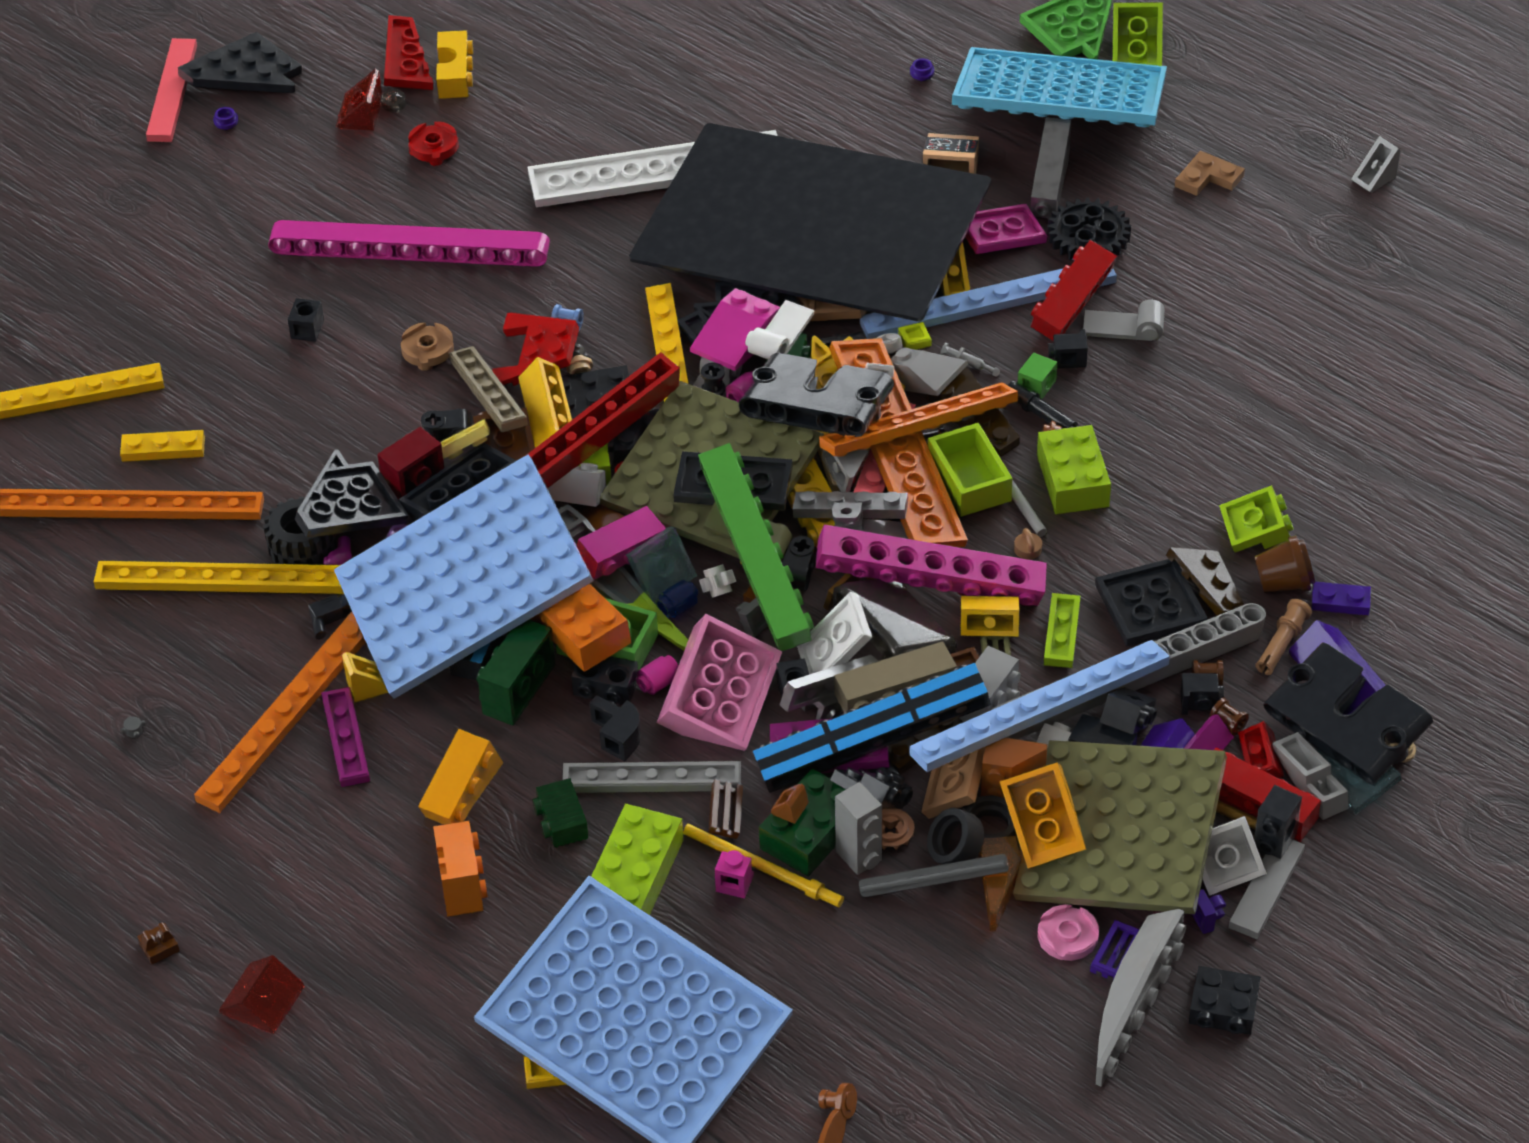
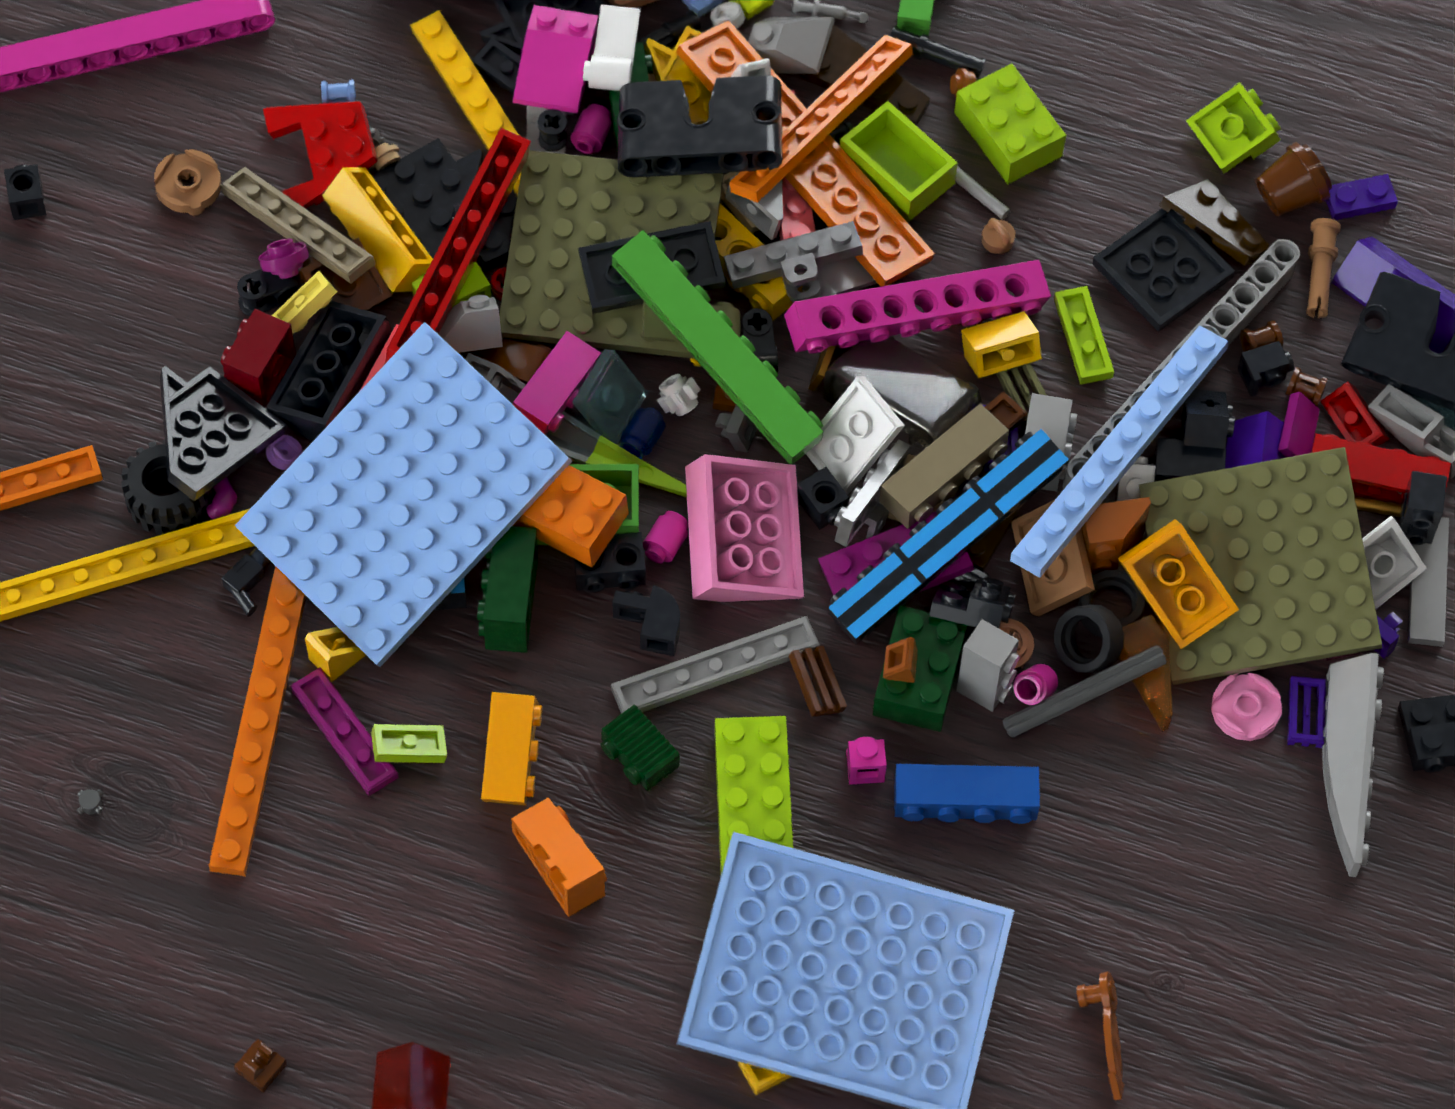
camera: 25 degrees left, 15 degrees up
(386, 755) = (409, 743): none -> lime plate
(463, 404) = (284, 258): none -> magenta plate
(803, 921) = (966, 792): none -> blue brick
(812, 888) = (957, 747): yellow bar -> none
(895, 858) = (1035, 684): none -> dark pink brick

